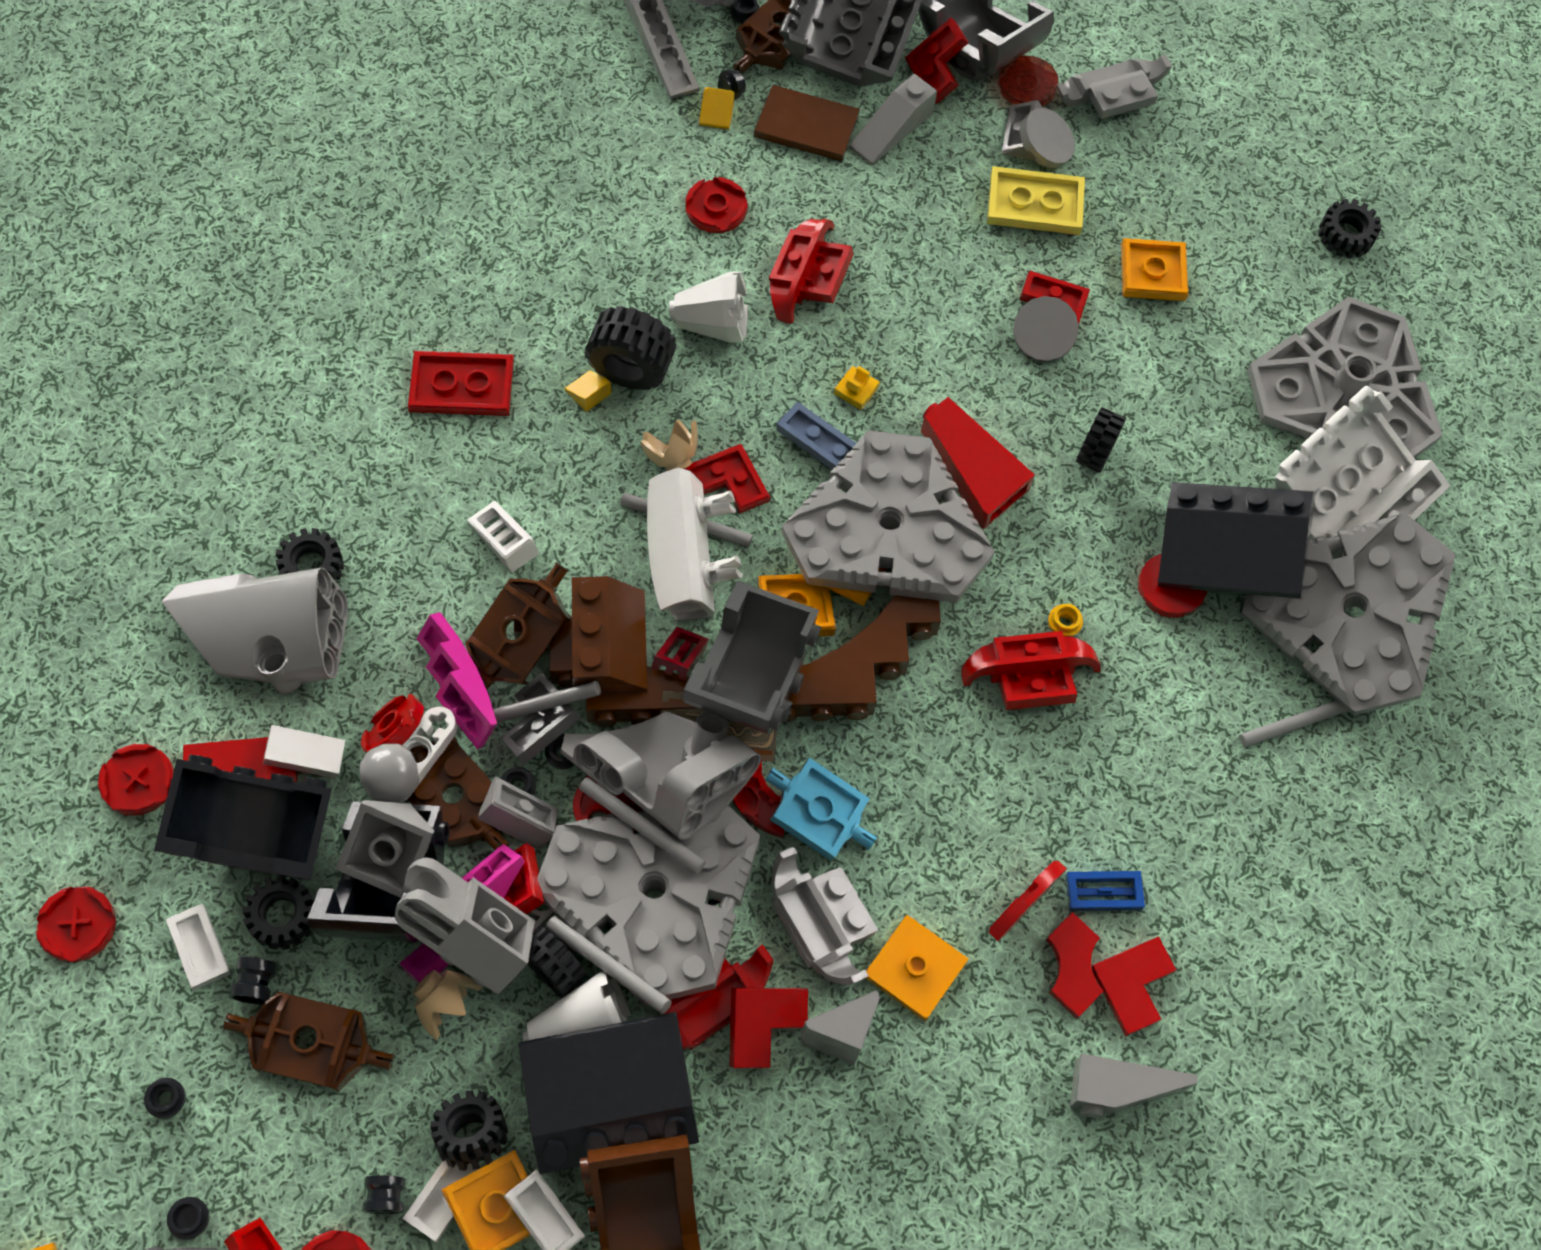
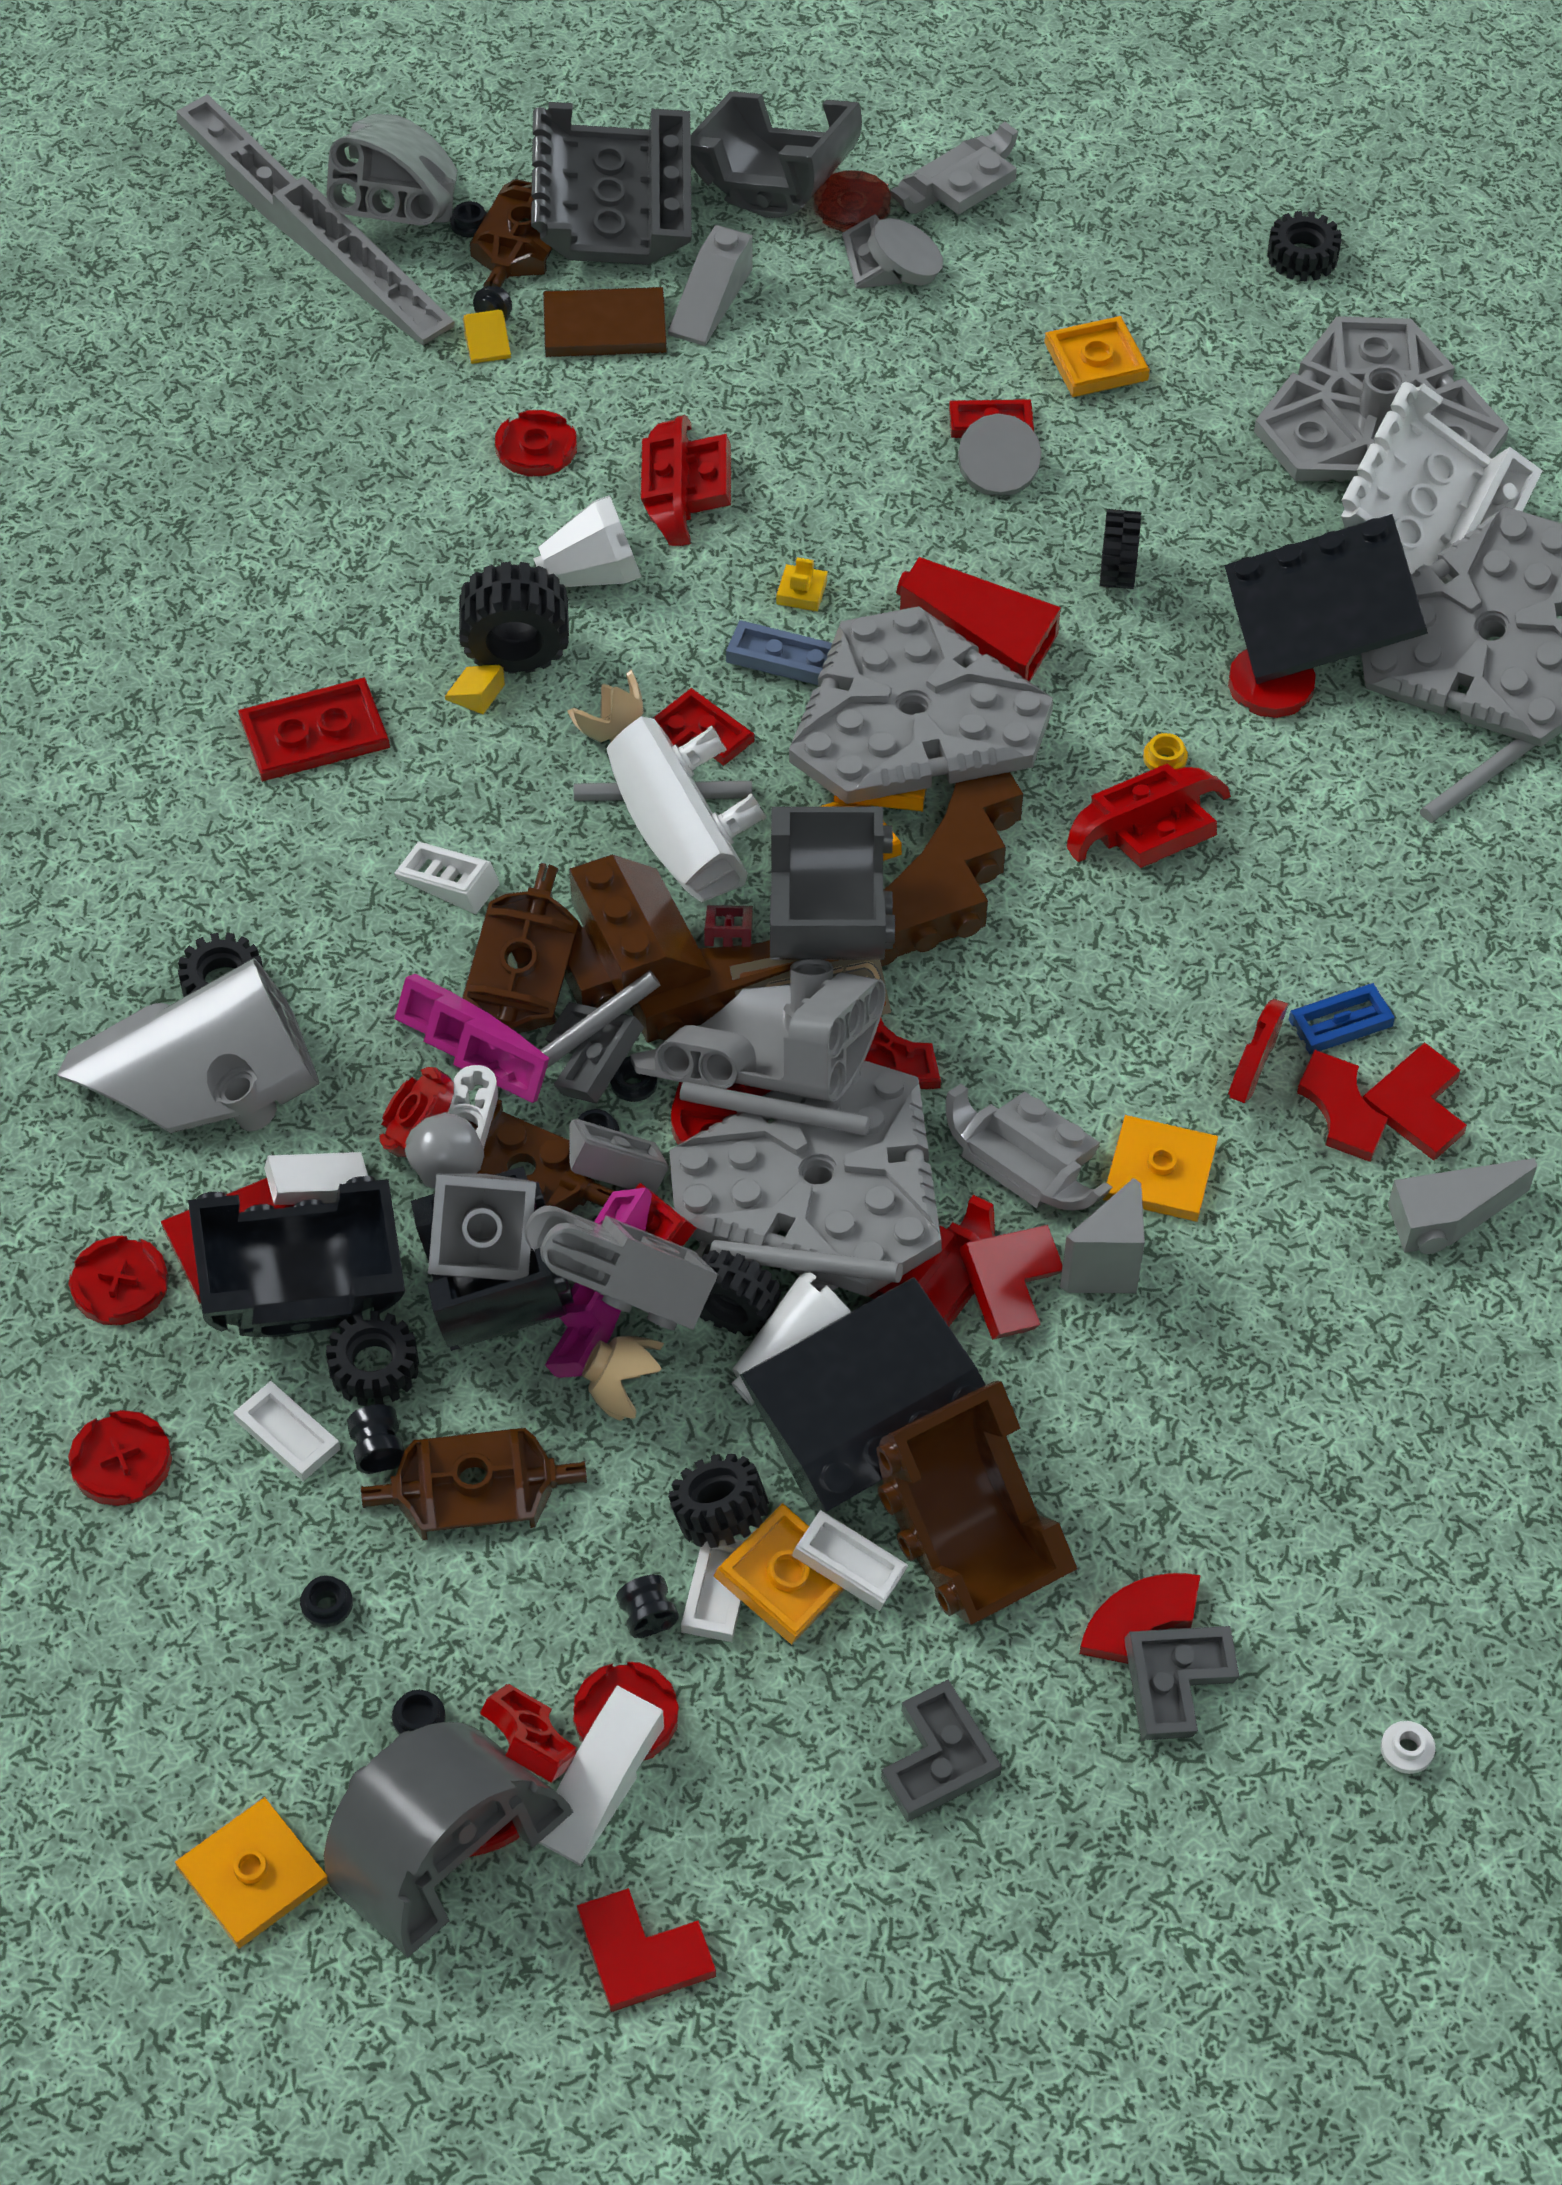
camera: 15 degrees left, 10 degrees down
(820, 809) = (972, 1036): medium azure plate -> none
(930, 58) = (728, 196): red tile -> none
(1036, 200) = (922, 324): light yellow plate -> none

